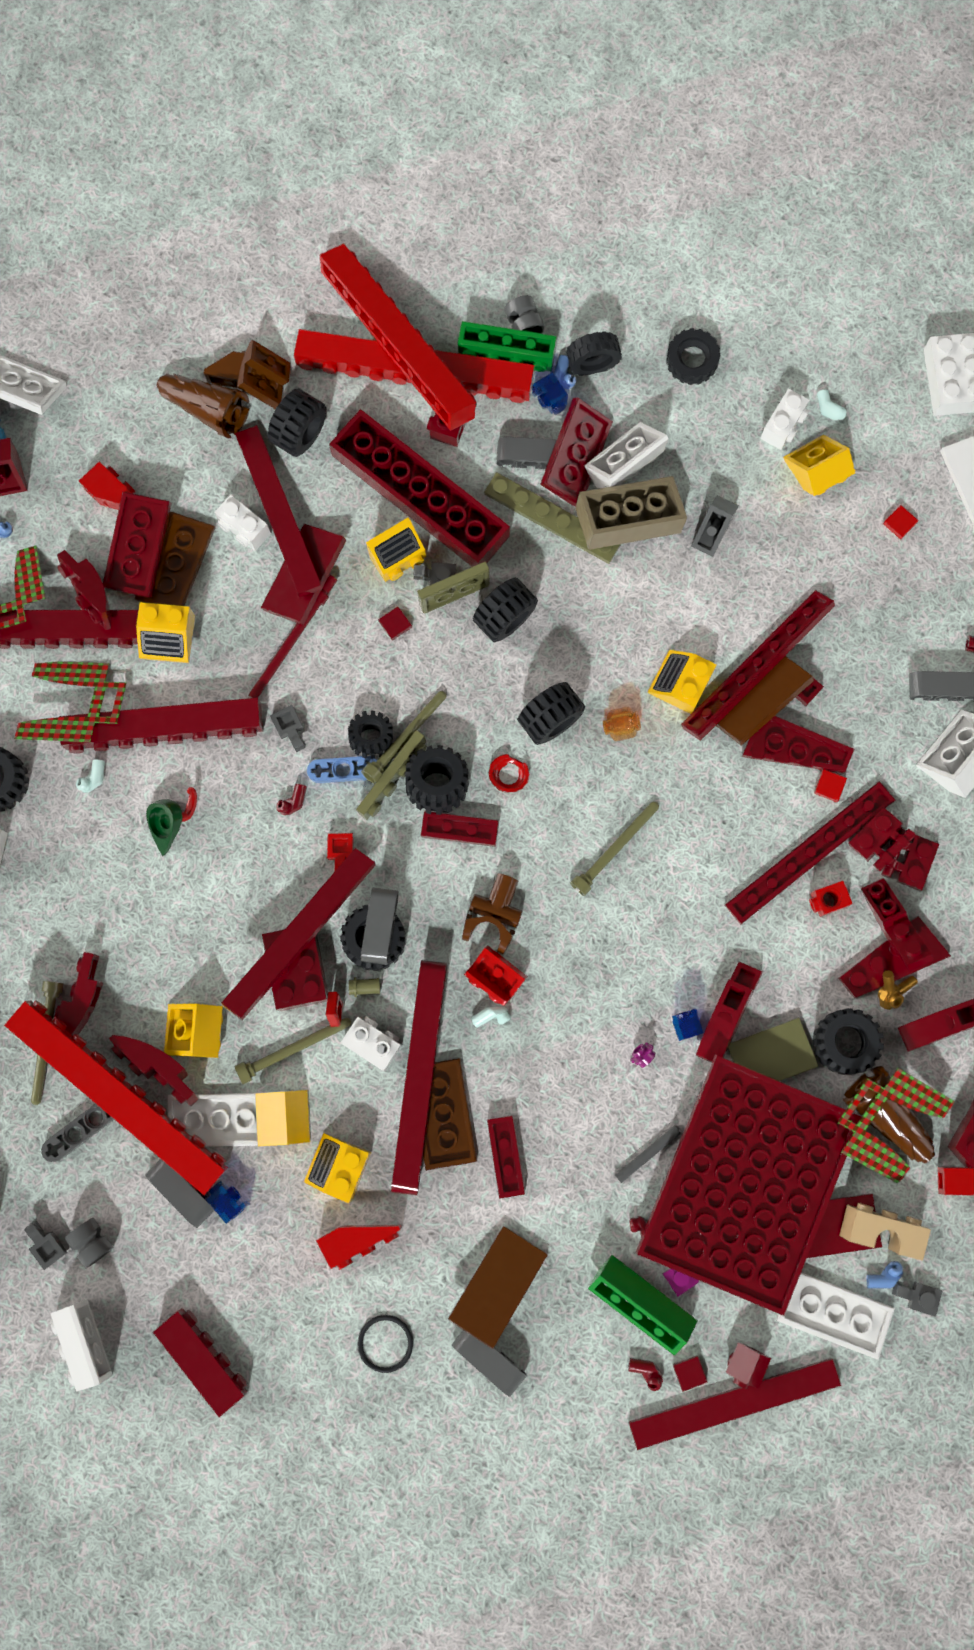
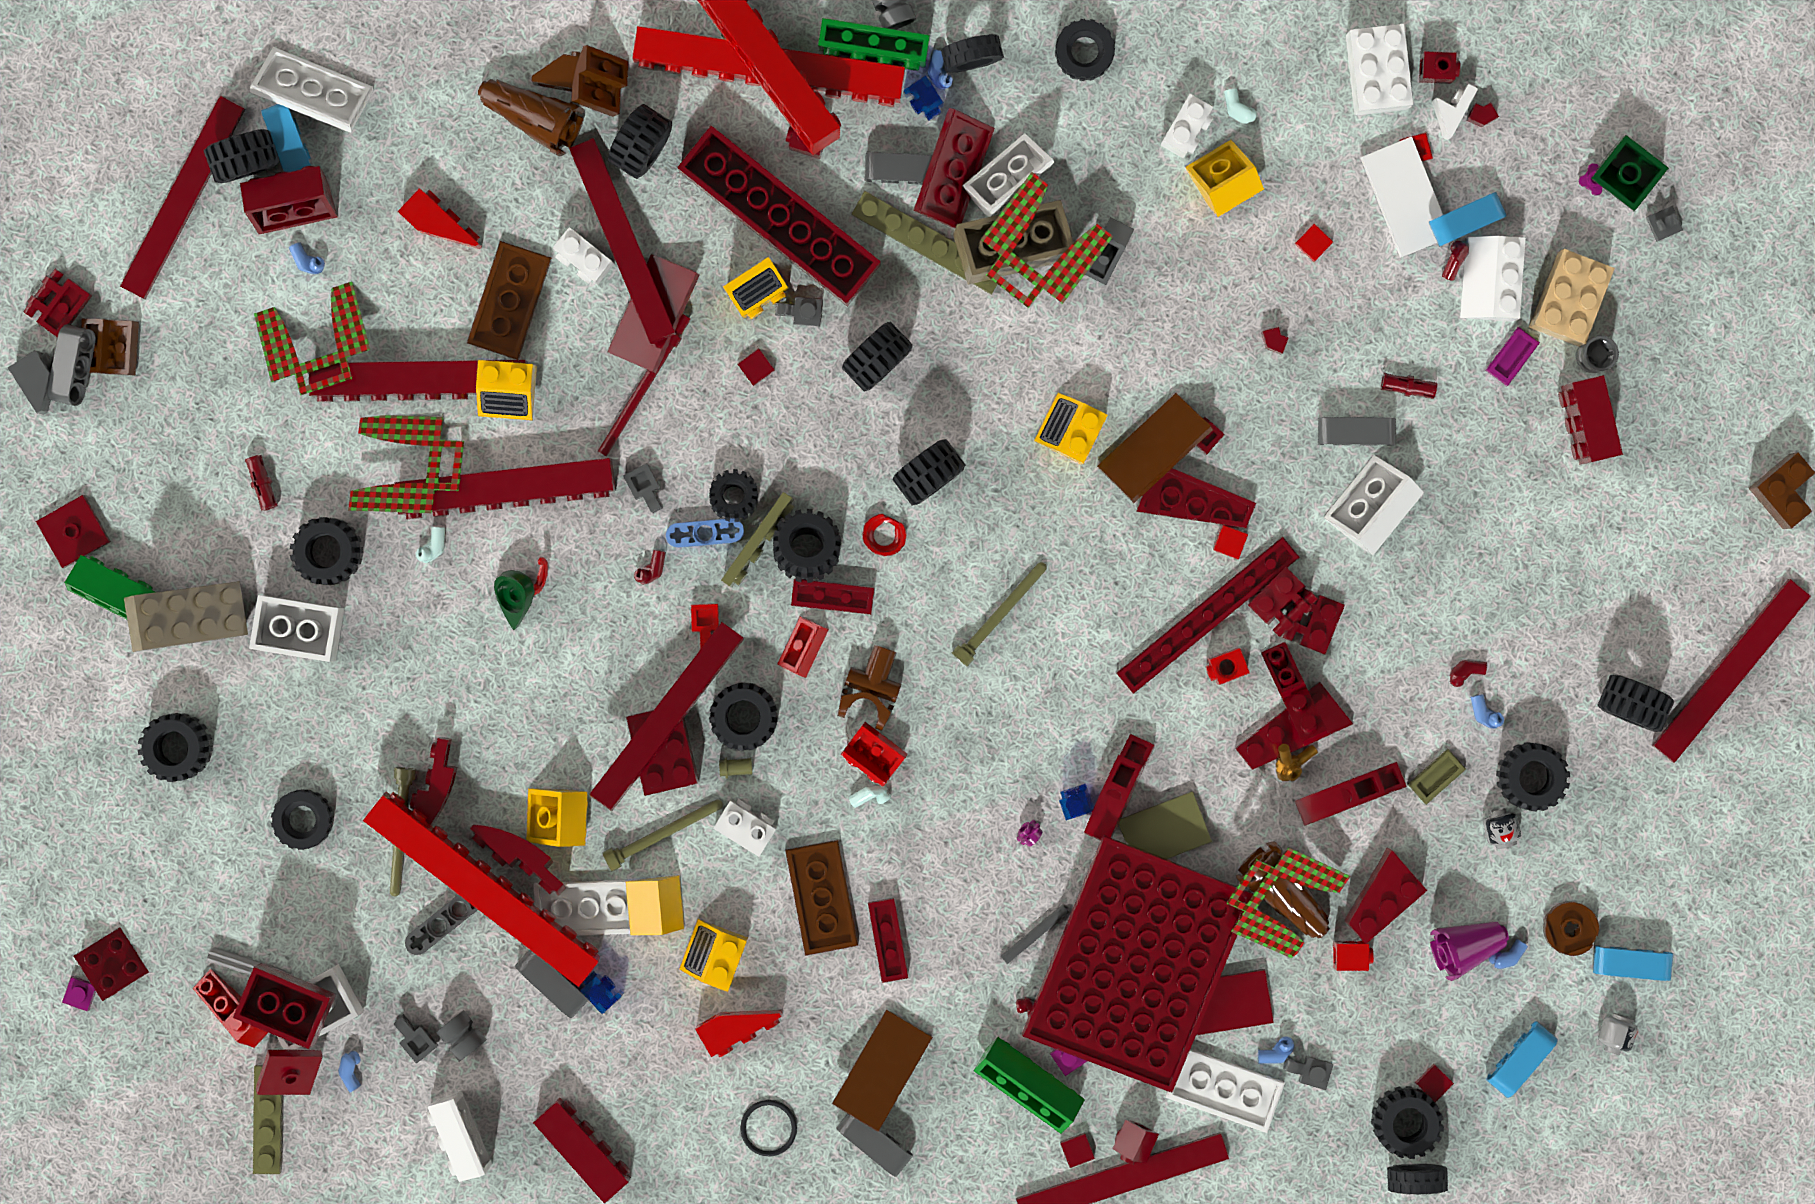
camera: 10 degrees left, 10 degrees up
(88, 587) = (418, 337): dark red slope -> none
(136, 544) = (467, 285): dark red tile -> none
(334, 1009) = (705, 792): red tile -> none
(374, 770) = (740, 536): olive piece -> none
(379, 926) = (751, 708): dark grey beam -> none
(419, 1078) = (796, 860): dark red beam -> none
(431, 875) = (802, 647): none -> red slope
(454, 587) = (820, 331): olive tile -> none
(622, 724) = (1006, 478): clear orange head -> none
(627, 495) = (1010, 228): none -> piece
(648, 1370) = (1035, 1148): dark red arm -> none
(758, 665) = (1154, 409): dark red tile -> none
(864, 1226) = (1254, 1001): tan arch -> none
(867, 605) = (1274, 340): none -> dark red piece
(869, 1036) = (1259, 833): black tyre -> none

